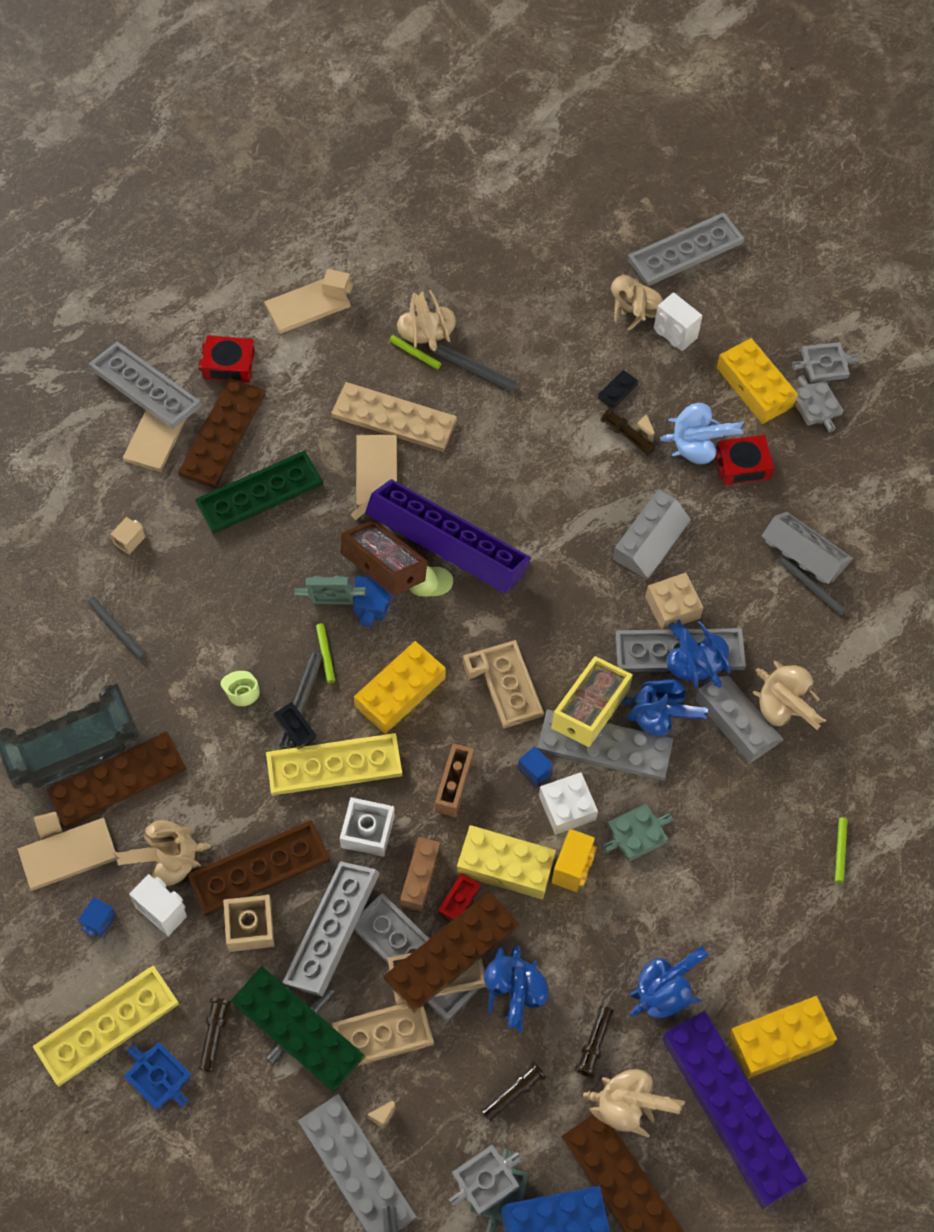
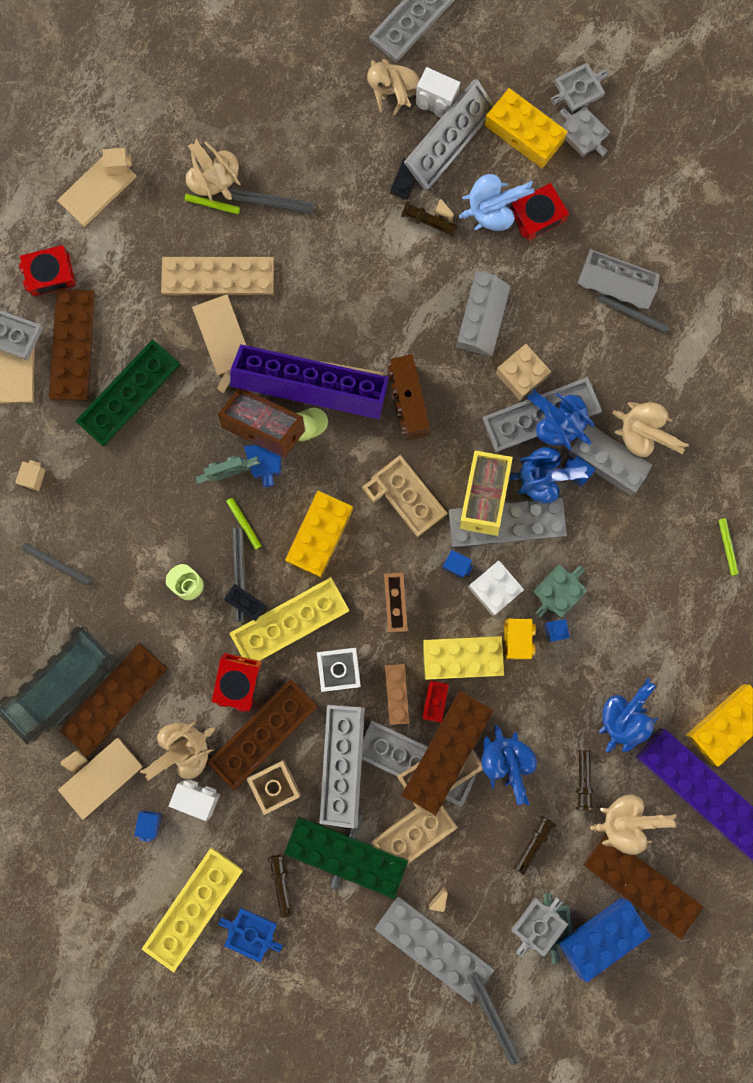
camera: 15 degrees left, 20 degrees up
(253, 802) = (236, 682): none -> red brick
(543, 585) = (409, 397): none -> reddish brown brick
(619, 869) = (556, 630): none -> blue brick
(675, 362) = (449, 135): none -> light grey plate
(702, 726) = (579, 462): none -> blue brick

